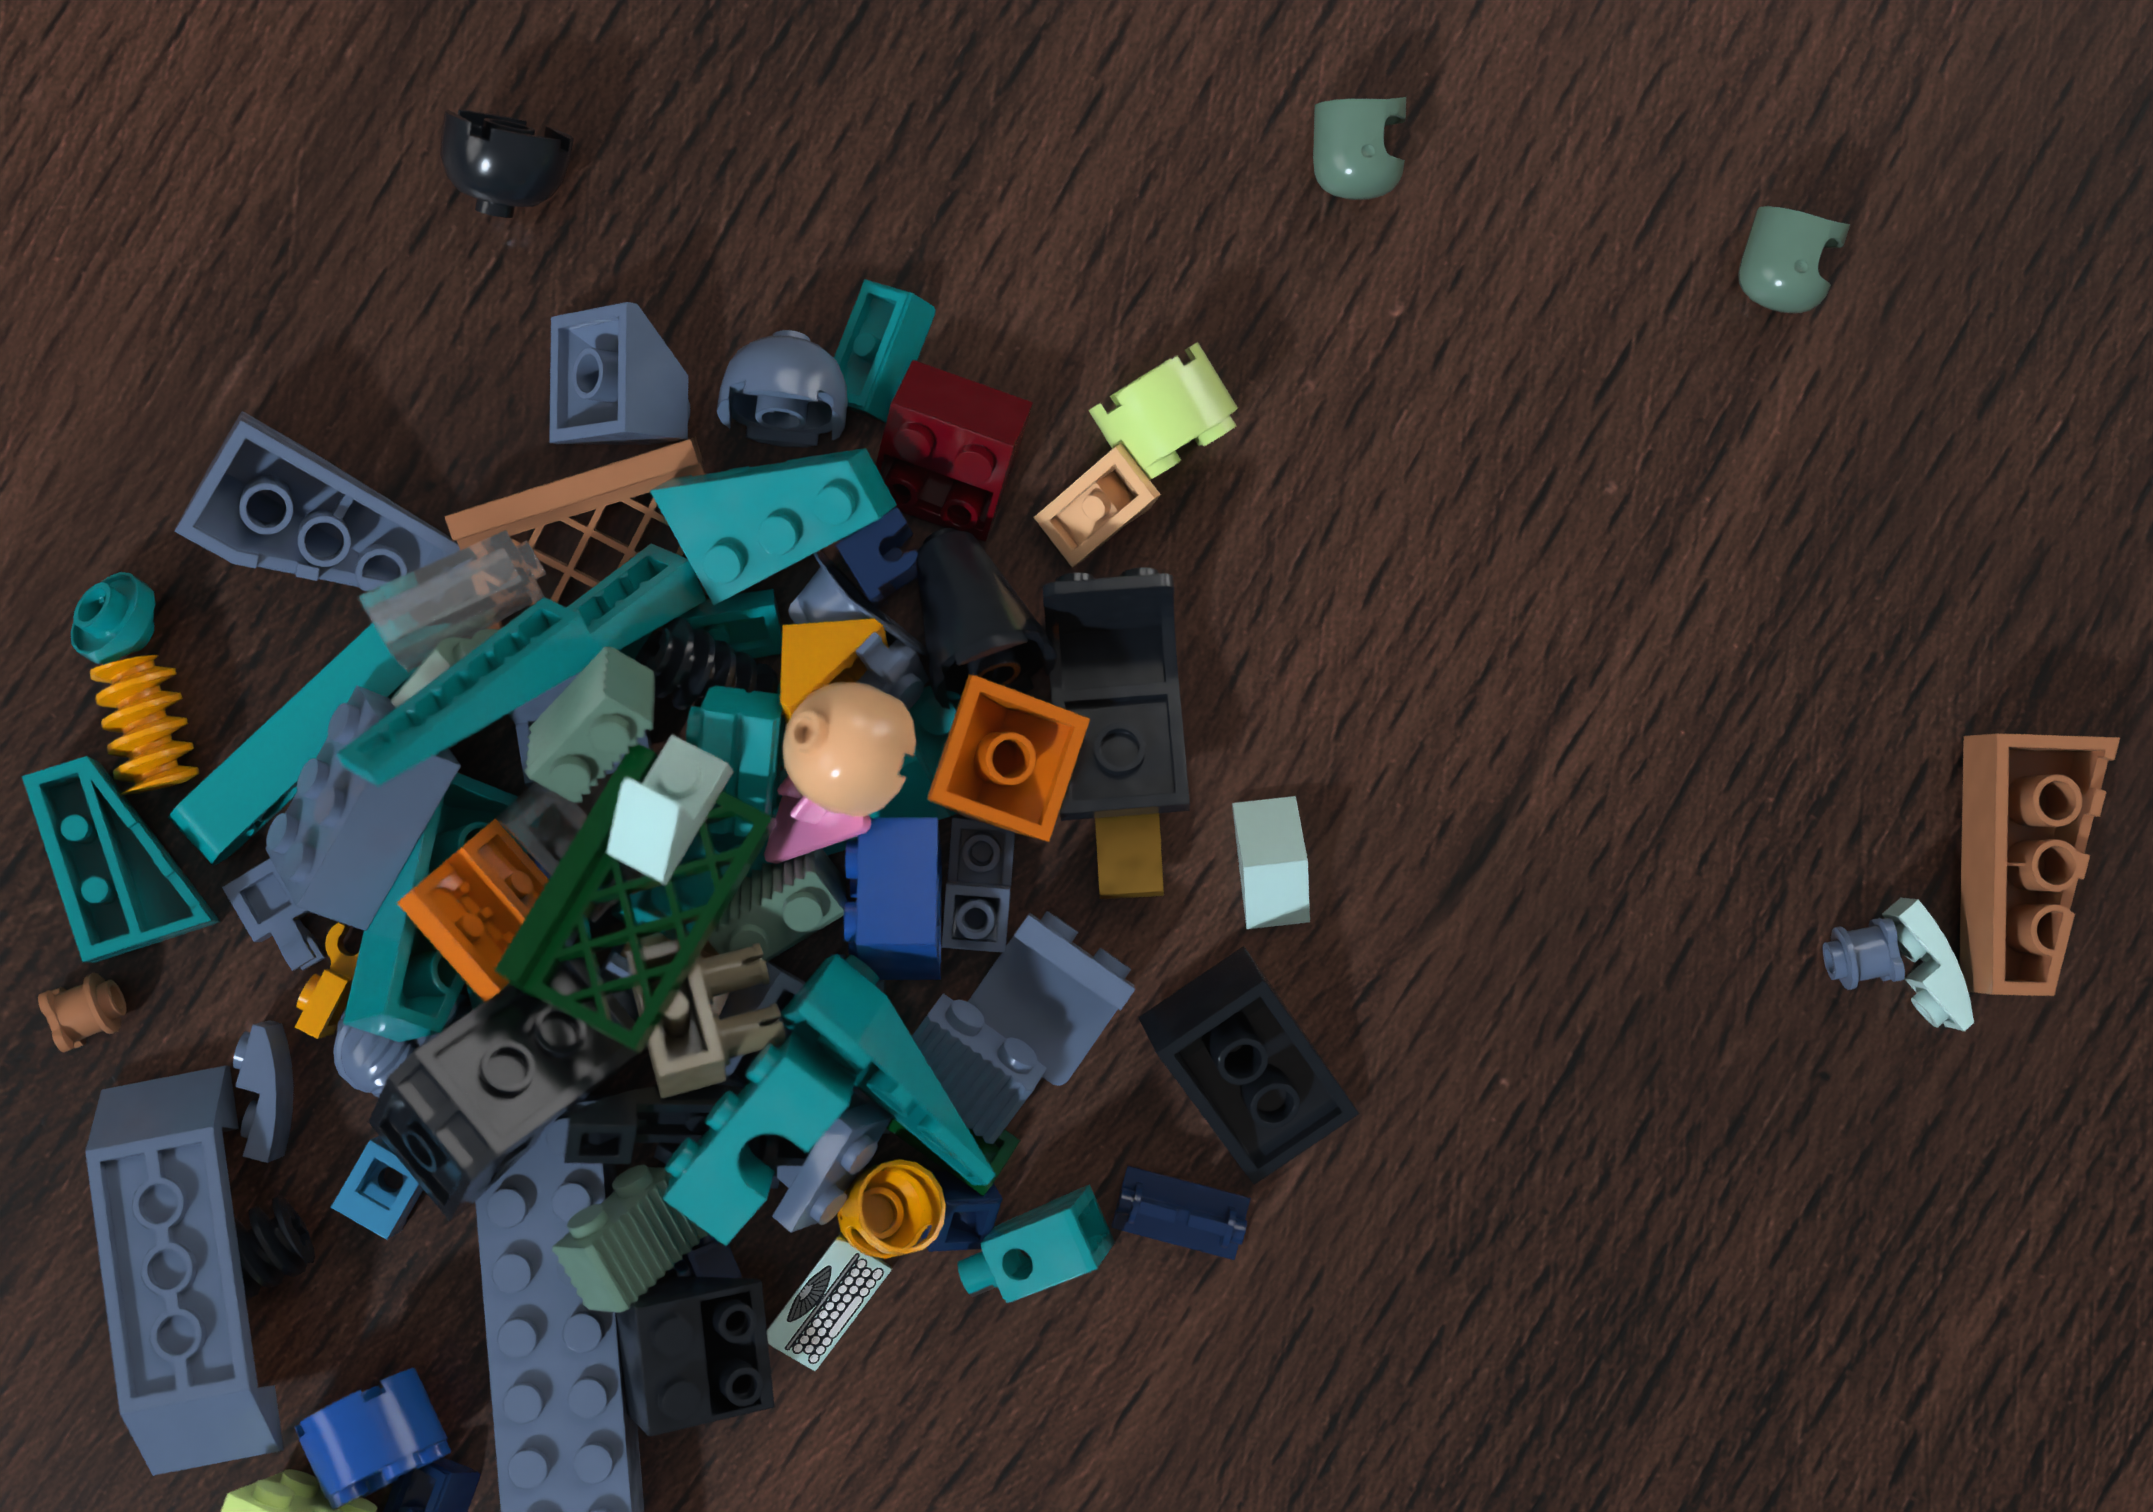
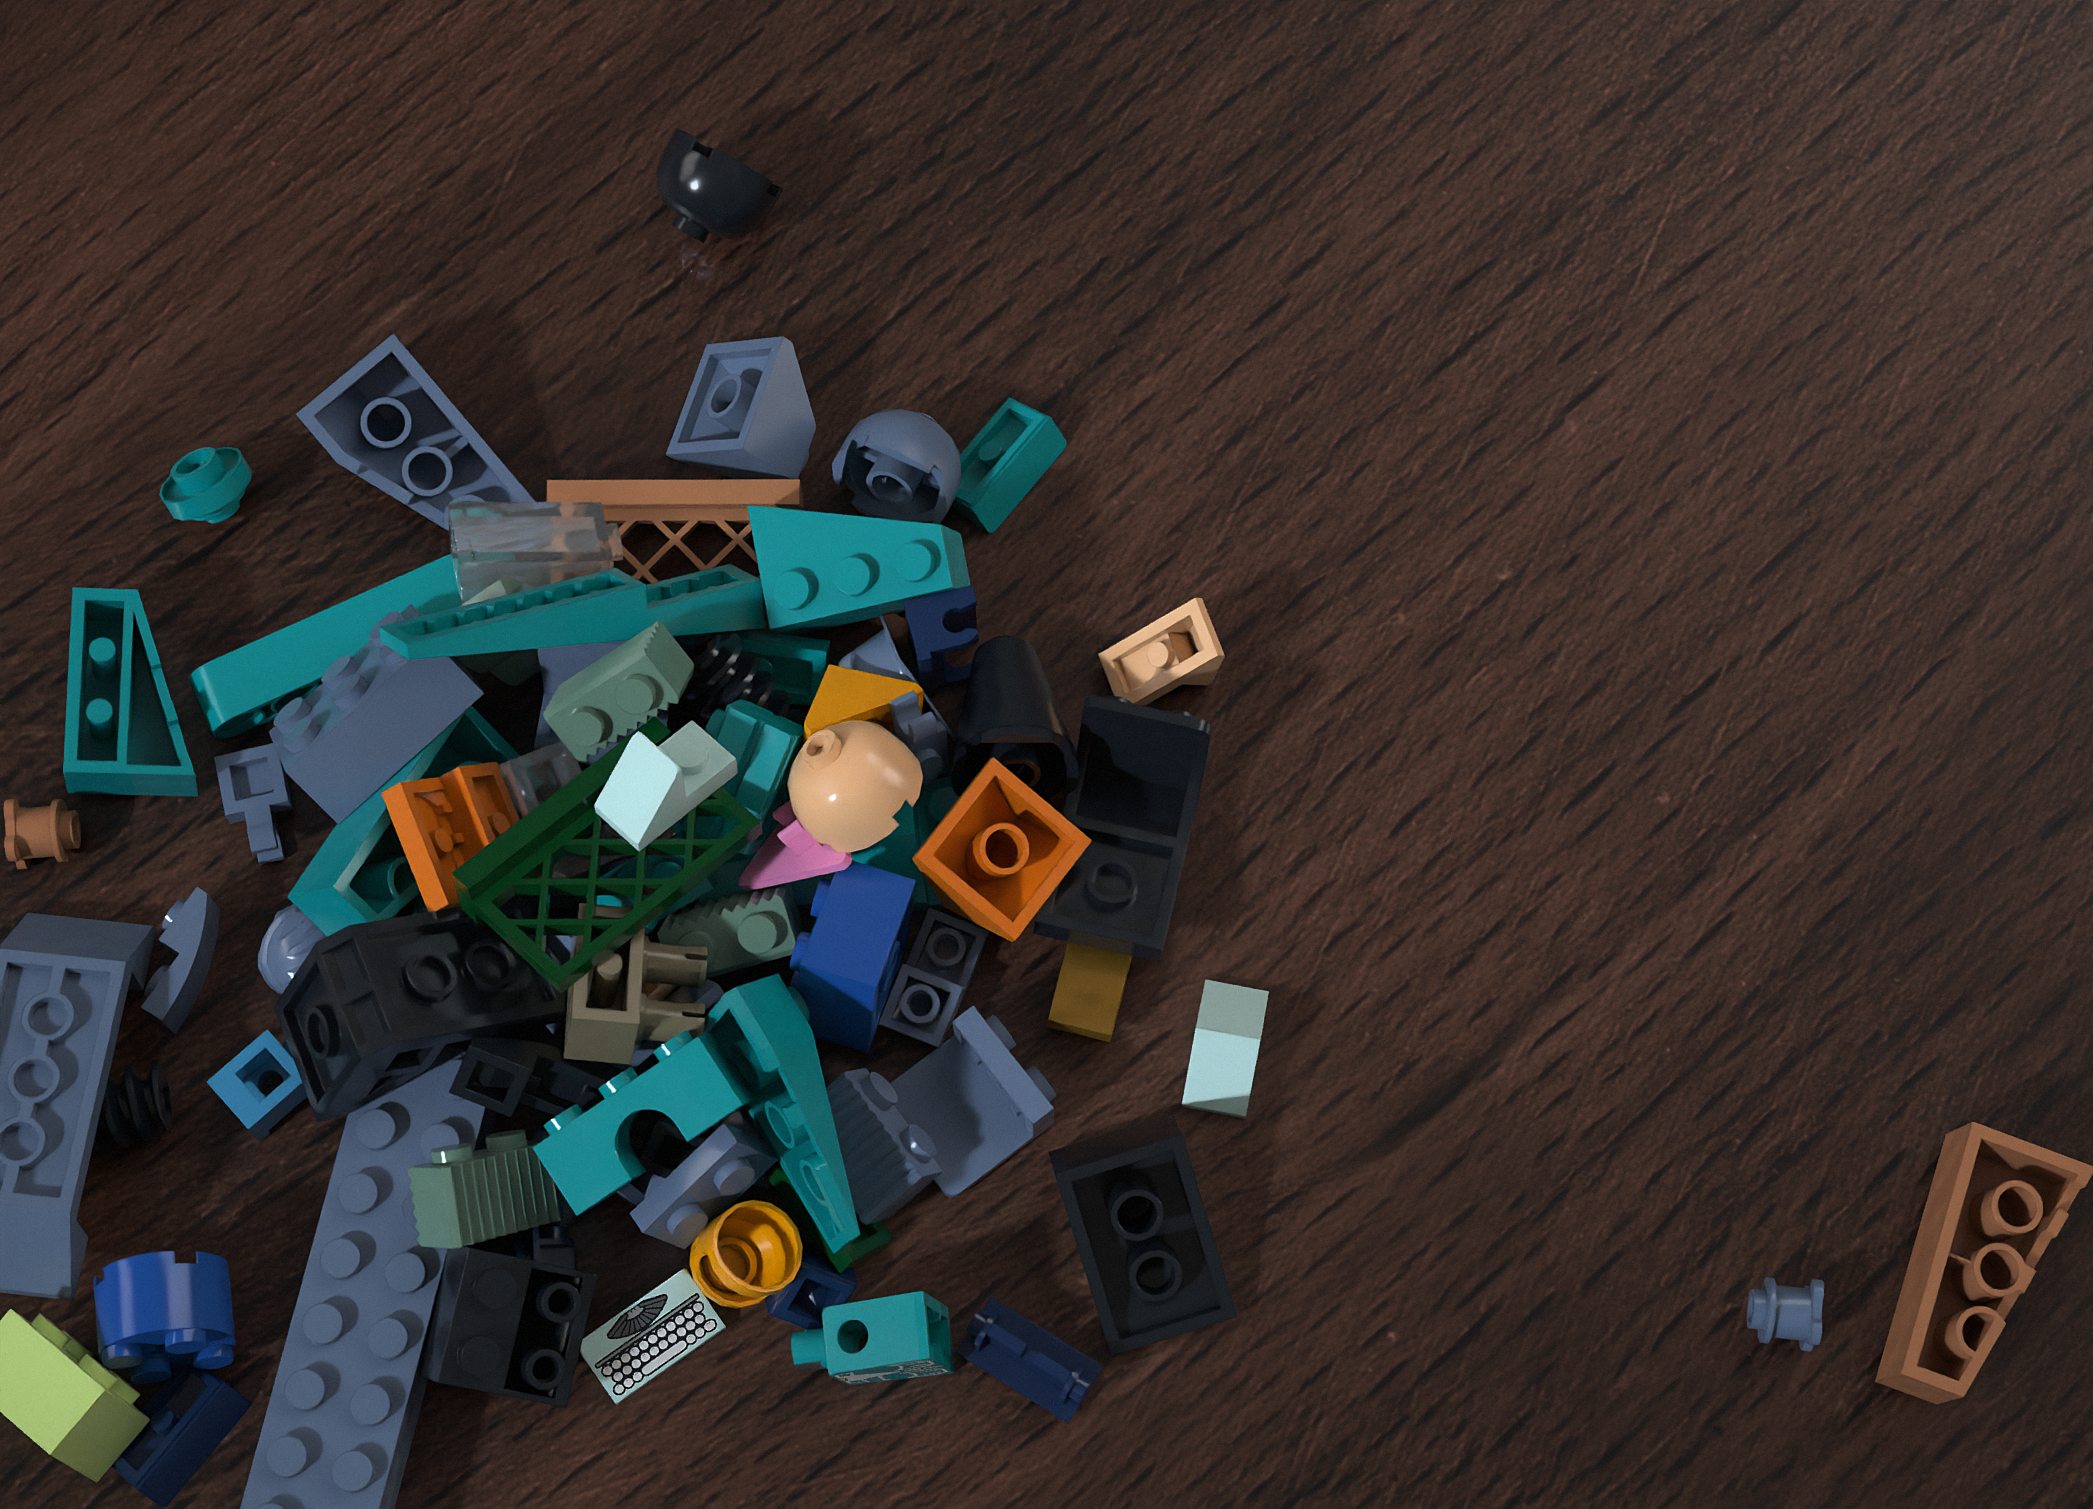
camera: 15 degrees right, 15 degrees down
(143, 723) = (195, 584): light orange piece -> none
(327, 995) = (269, 886): light orange plate -> none
(950, 448) = (1040, 566): dark red slope -> none
(1168, 411) = (1256, 587): yellowish green brick -> none
(1351, 148) = (1500, 406): sand green helmet -> none
(1784, 258) = (1883, 627): sand green helmet -> none
(1938, 980) = (1855, 1367): light aqua slope -> none

